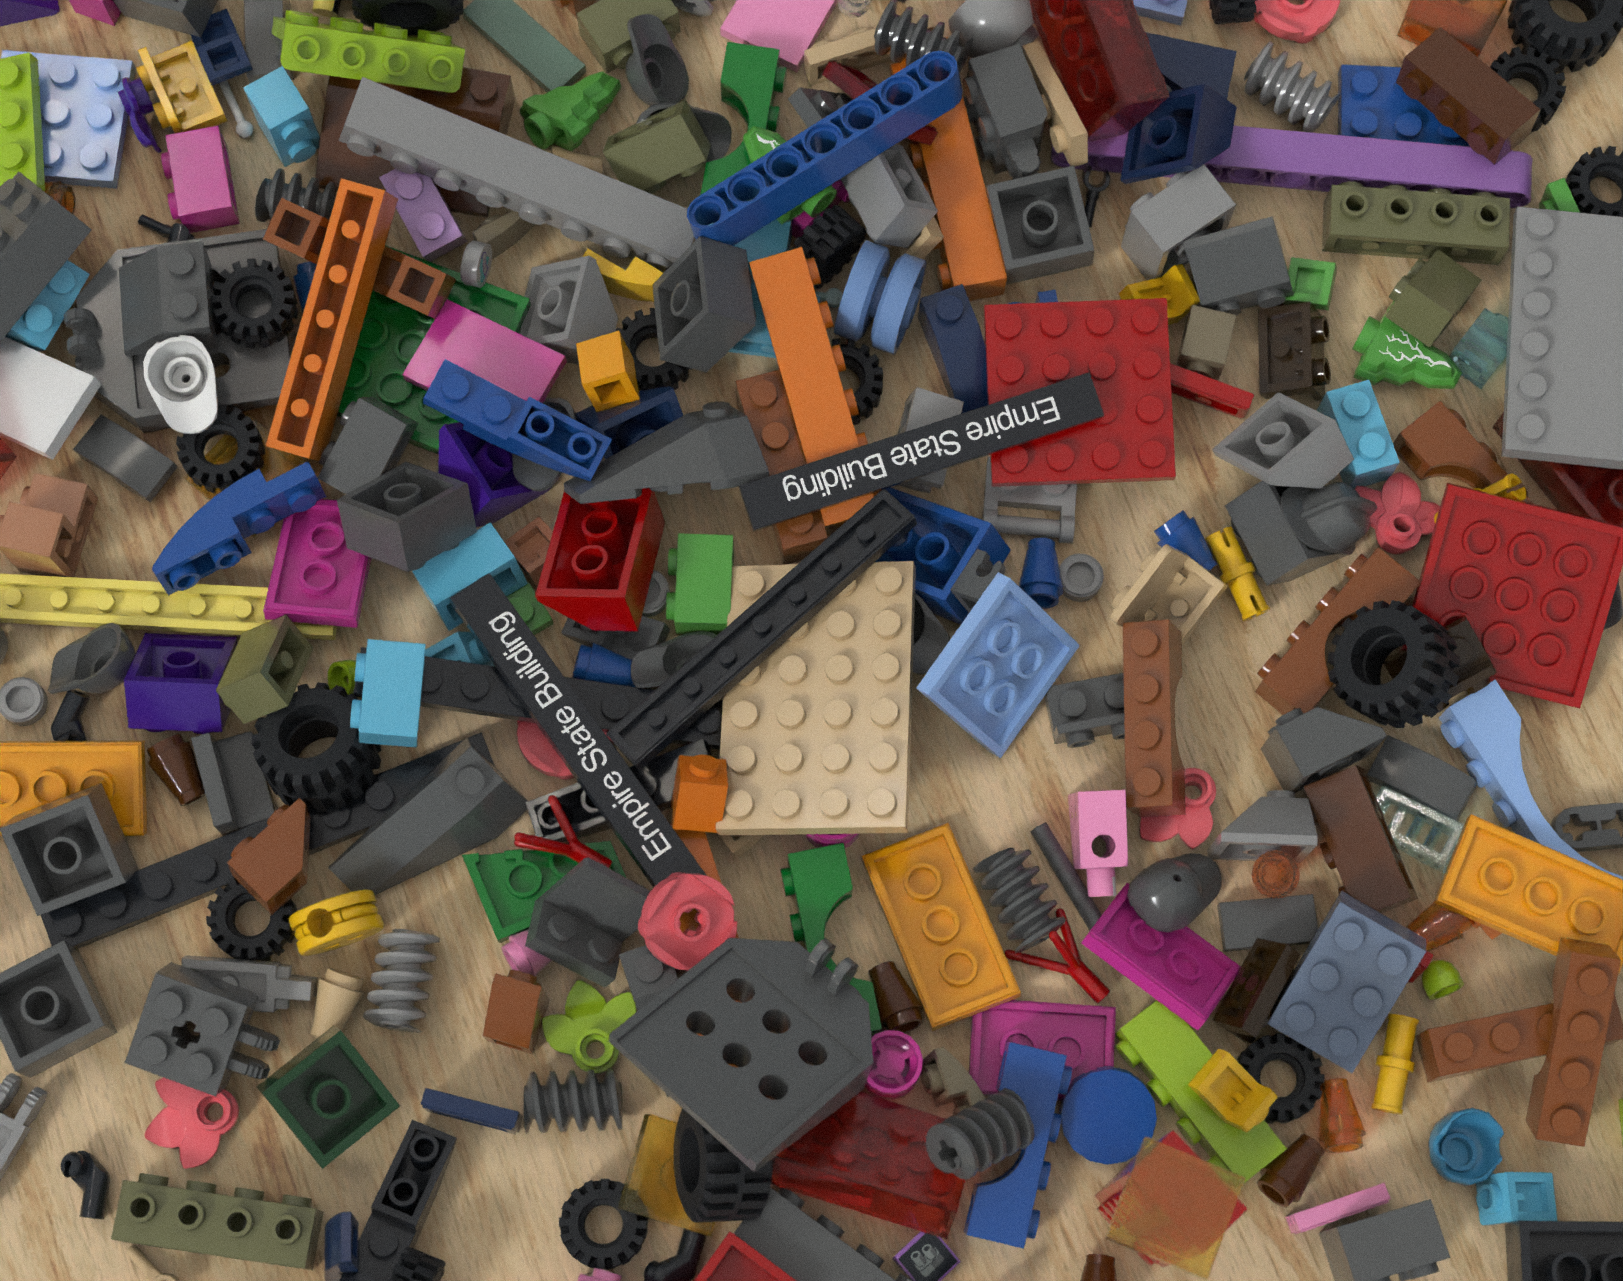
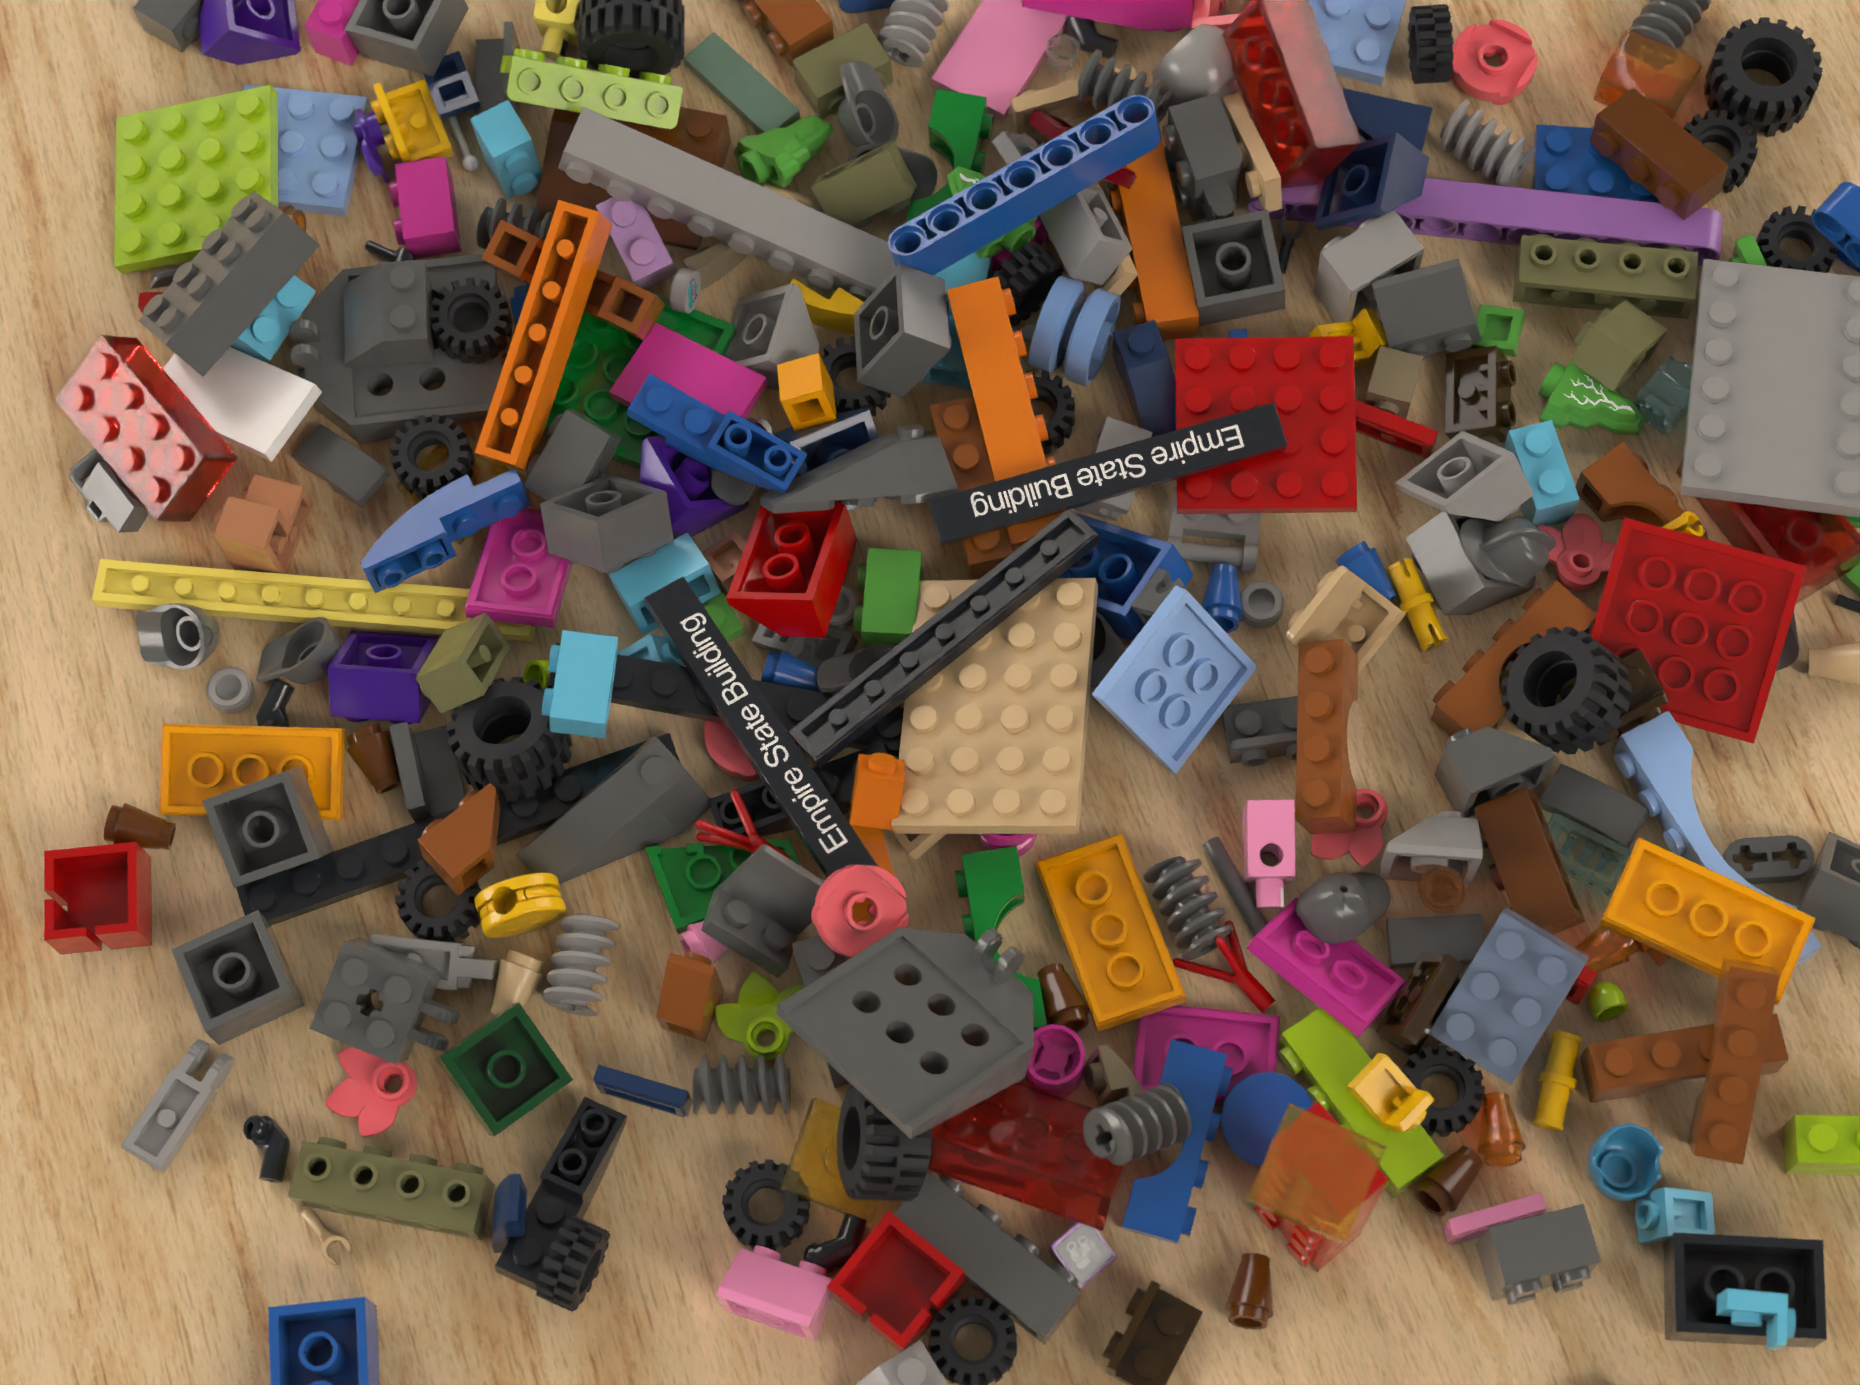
camera: 10 degrees right, 5 degrees down
(188, 405) = (383, 376): white cap -> none

